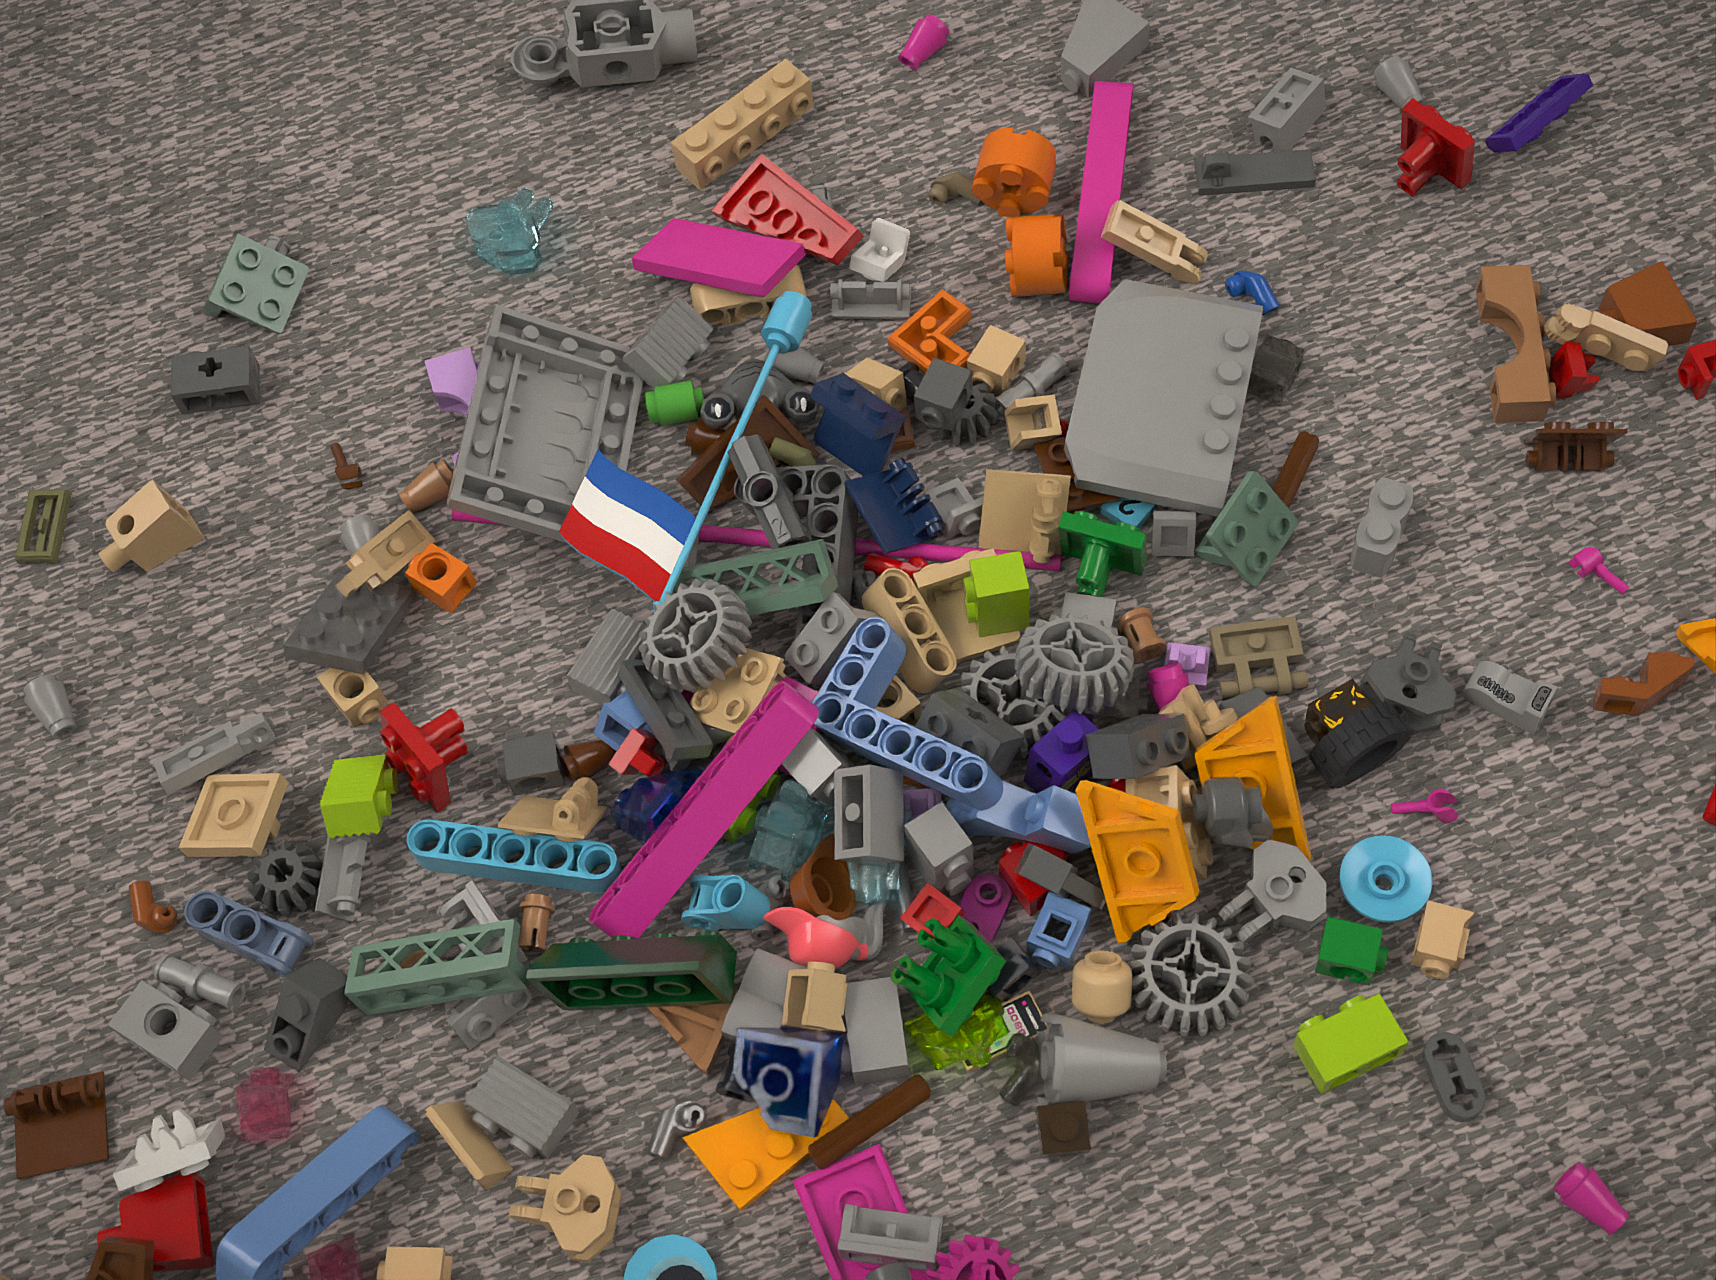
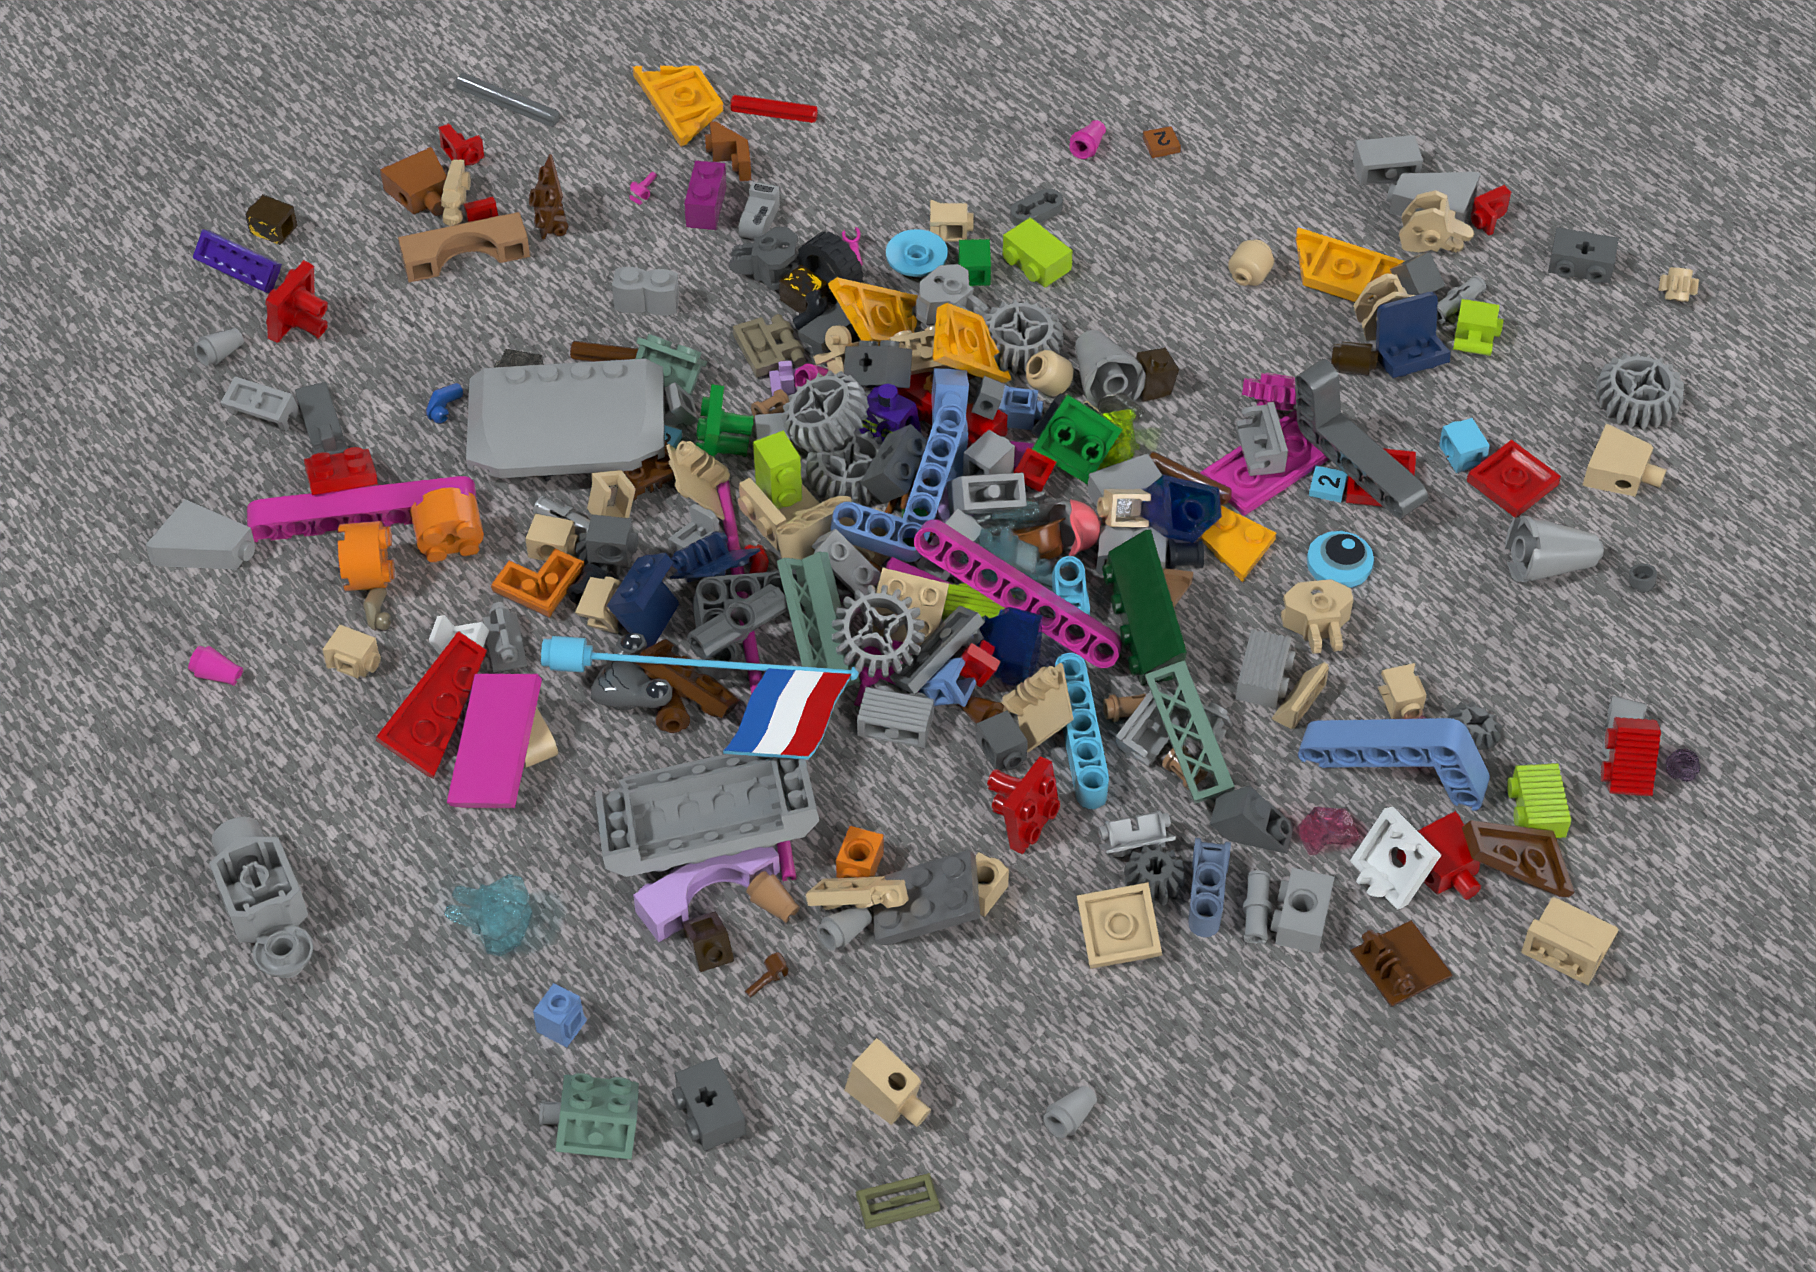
camera: 115 degrees left, 10 degrees down
(149, 914) = (1217, 966): dark orange arm -> none
(212, 752) = (1072, 971): light grey hinge -> none
(358, 795) = (1075, 834): lime brick -> none
(370, 269) = (559, 1015): none -> medium blue window
(406, 414) = (709, 941): none -> dark brown bracket
(669, 344) = (590, 757): light grey brick -> none
(673, 1124) = (1234, 587): flat silver arm -> none
(674, 403) = (644, 743): bright green brick -> none
(742, 124) = (337, 769): tan brick -> none
(791, 453) = (679, 642): olive arm -> none
(798, 365) = (581, 682): light grey cone -> none
(895, 156) = (351, 652): none -> tan window
(1154, 242) = (417, 458): tan hinge -> none
(1158, 171) = (340, 471): none -> red plate
(1232, 812) = (910, 309): dark grey head -> none
(1296, 711) = (815, 307): none -> black arm
(1554, 632) = (705, 195): none -> magenta brick
(1603, 151) = (271, 219): none -> dark brown brick

